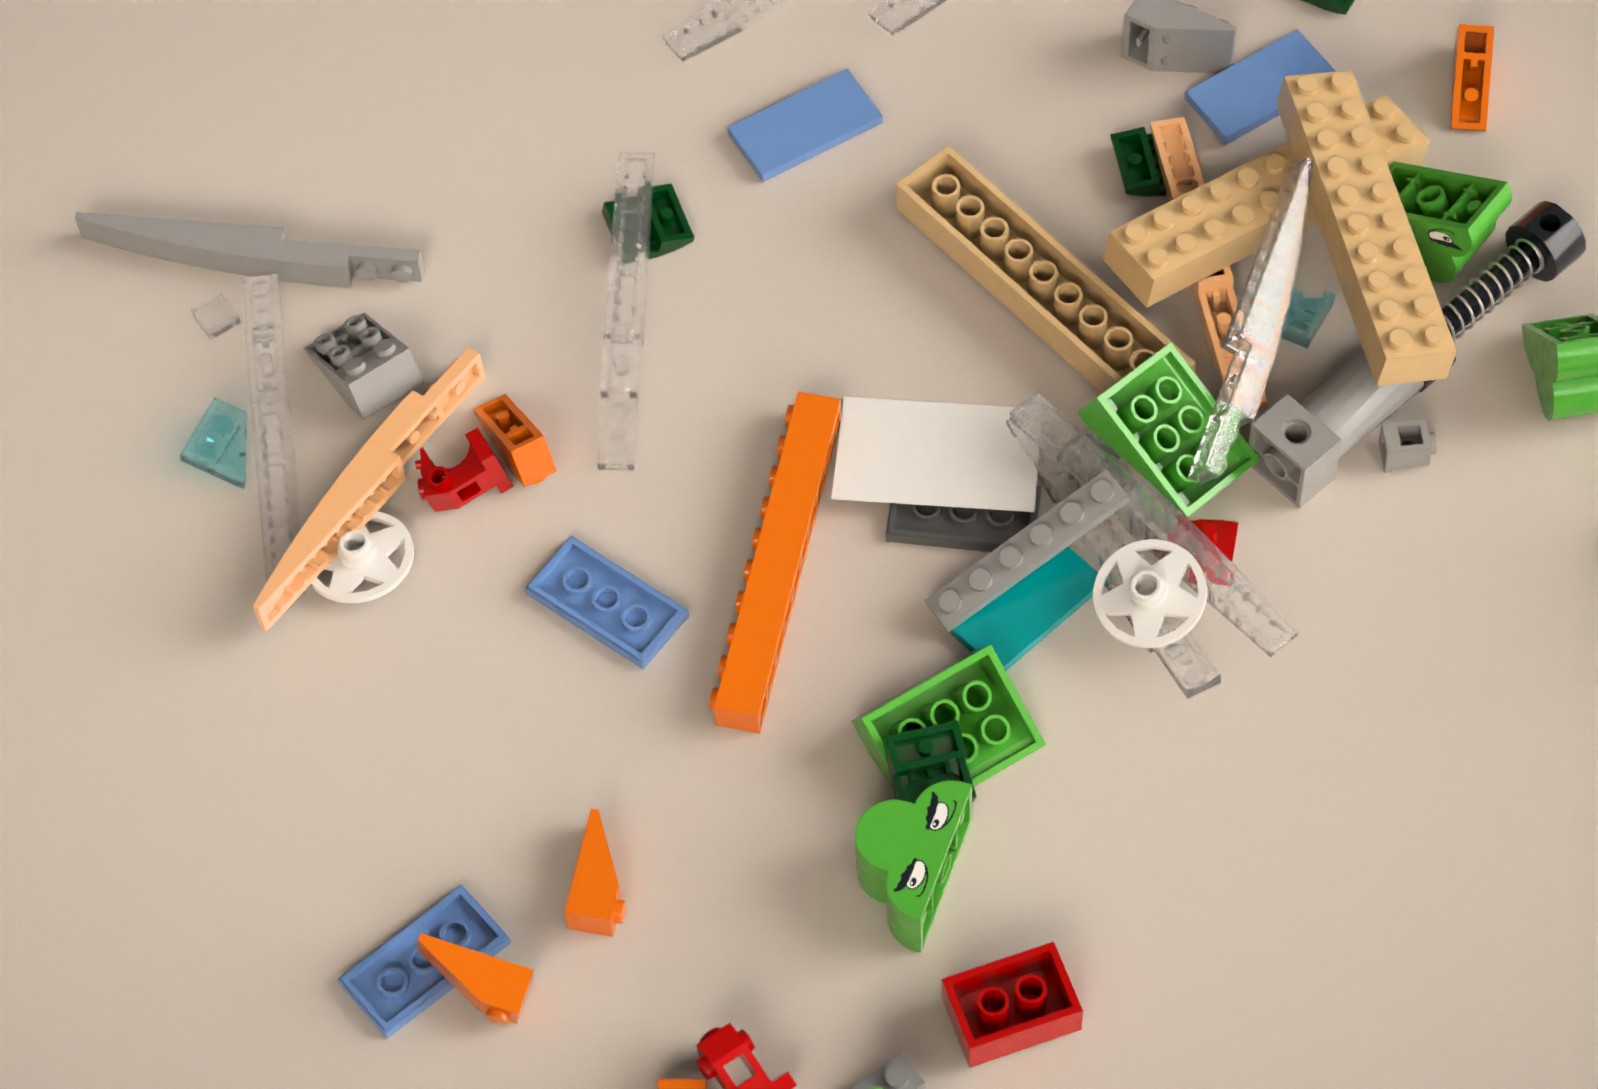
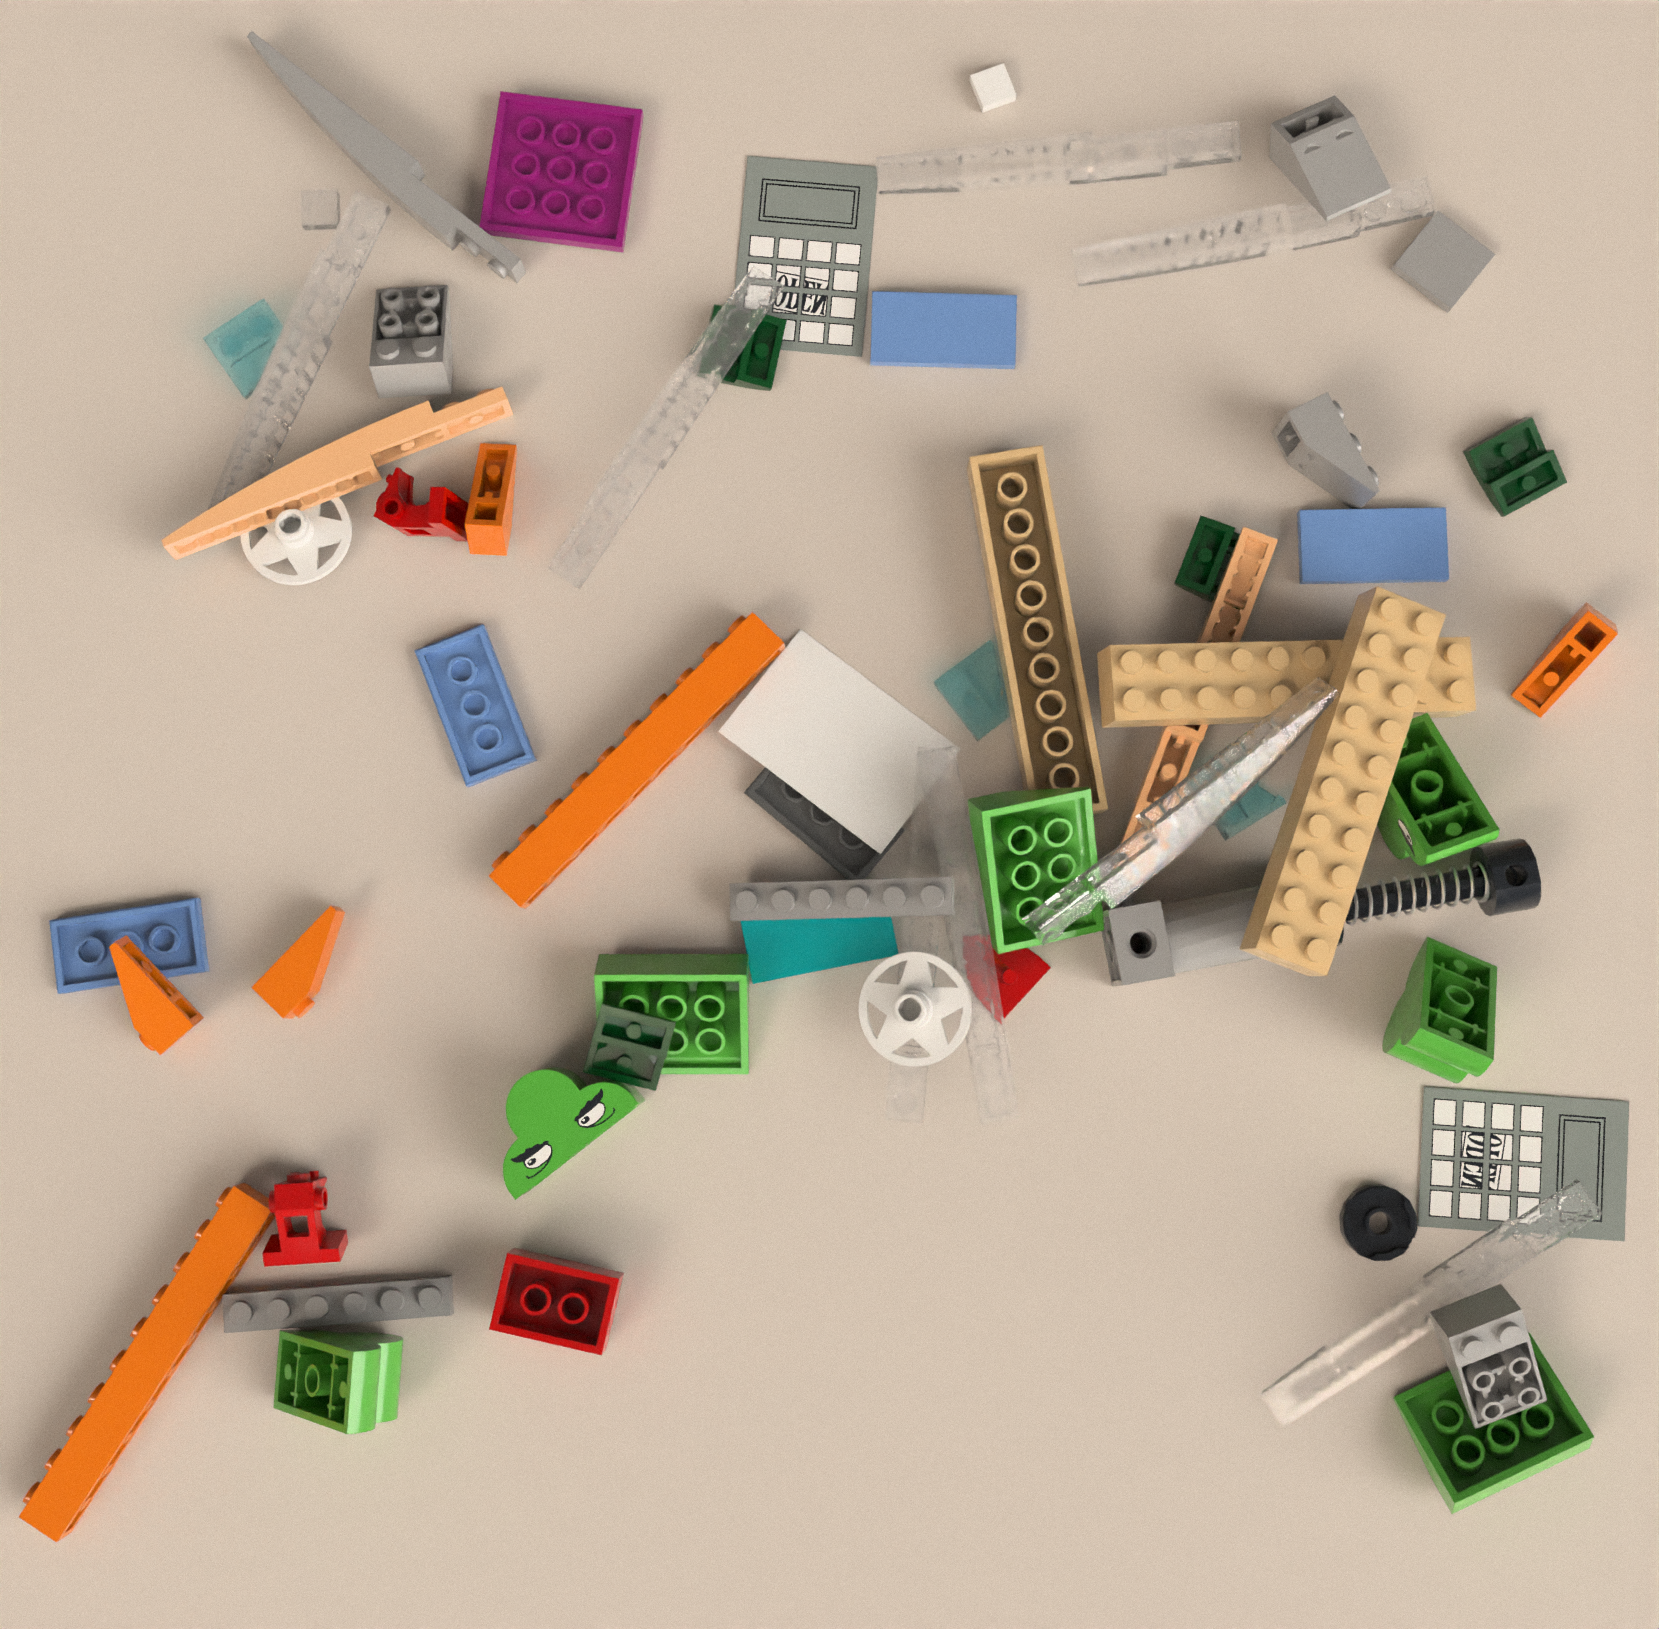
camera: 30 degrees right, 25 degrees up
(408, 179) = (561, 171): none -> magenta plate
(656, 111) = (814, 236): none -> light grey sticker
(1023, 358) = (975, 691): none -> clear light blue wing
(1406, 443) = (1257, 990): light grey brick -> none

